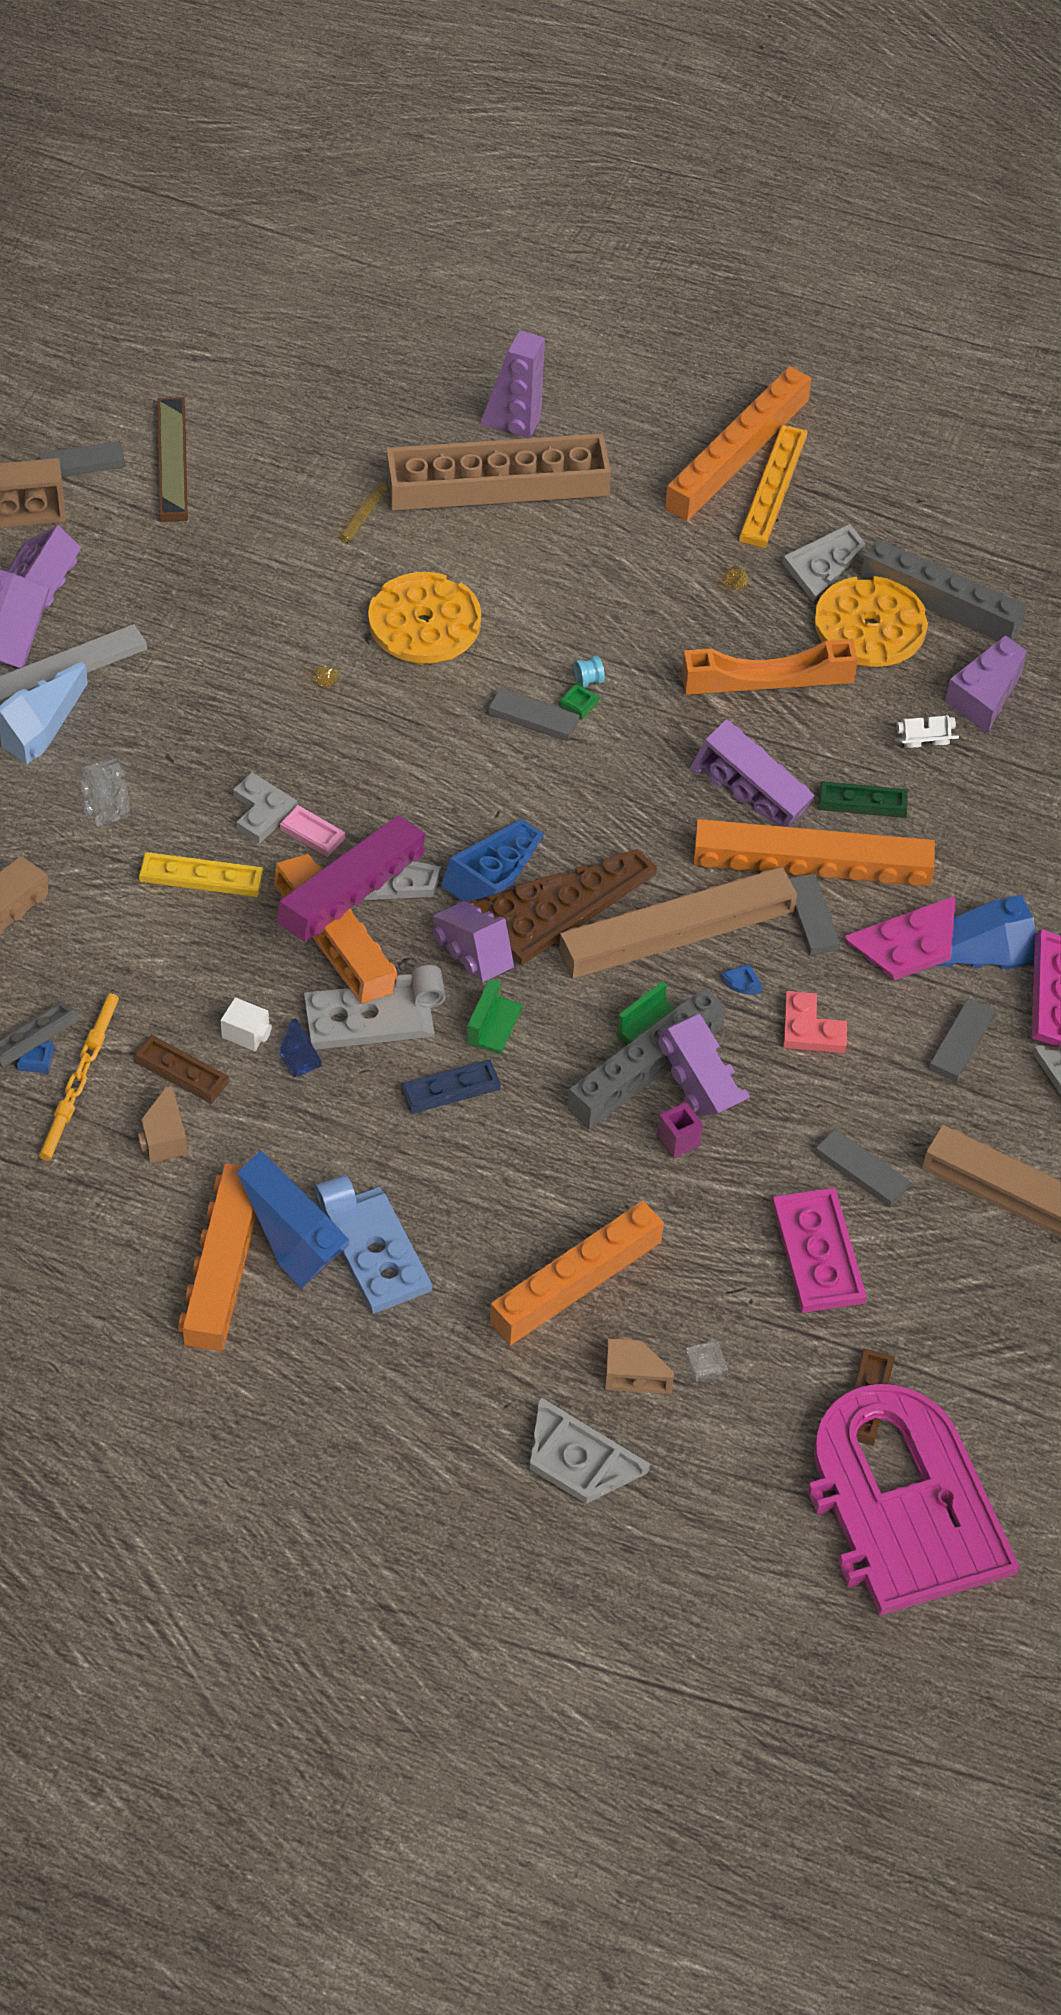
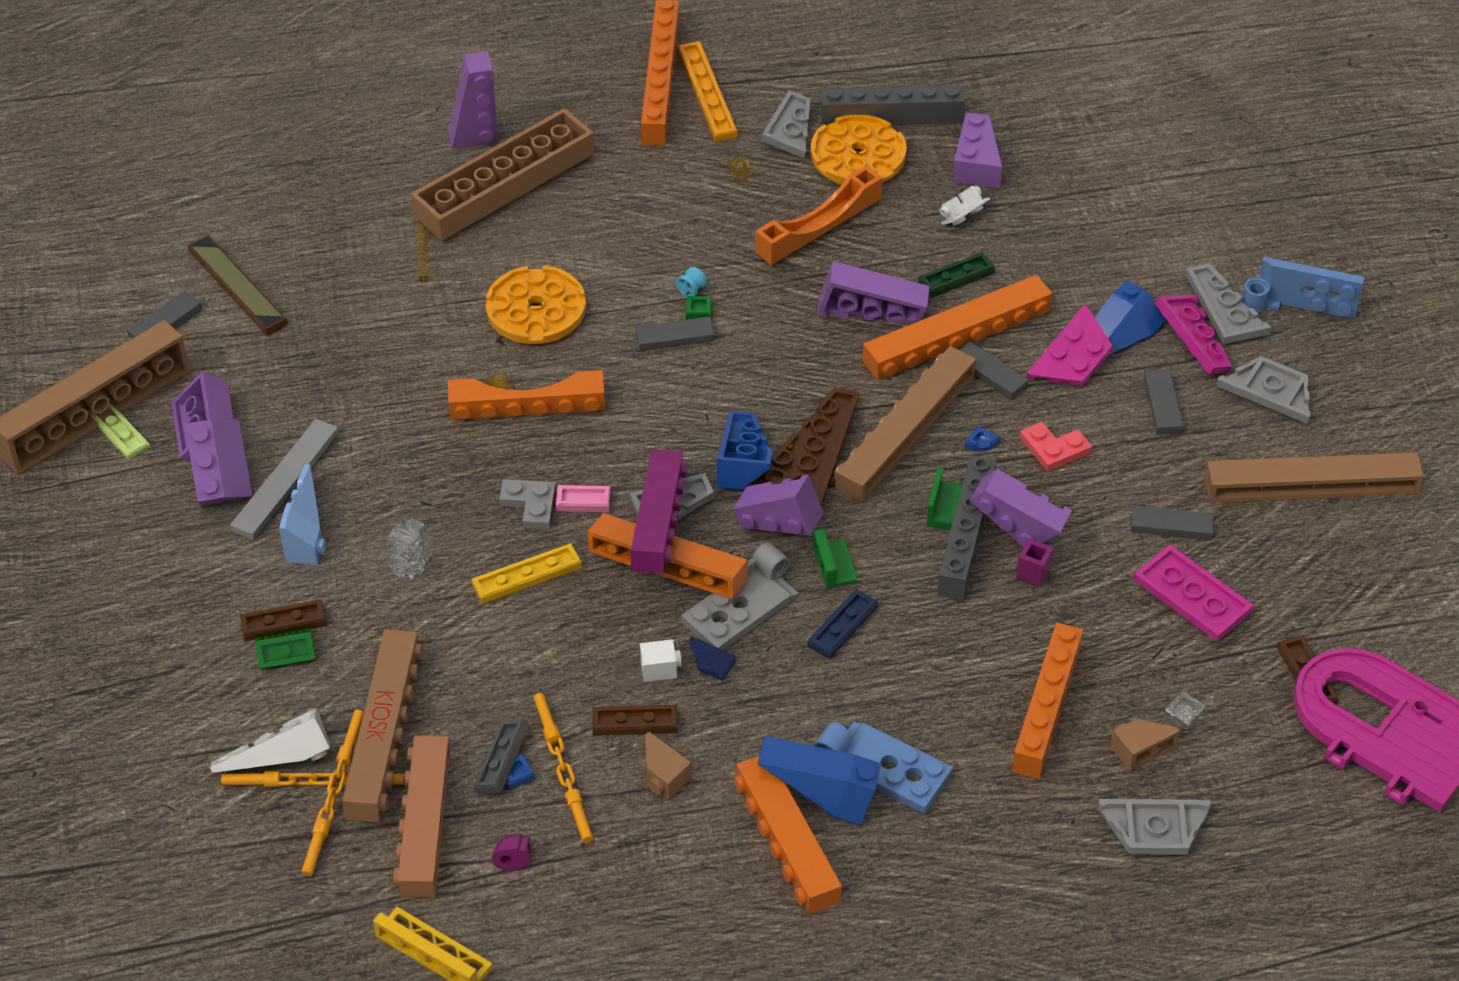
camera: 30 degrees left, 5 degrees down
(387, 724) = (475, 399): none -> orange arch

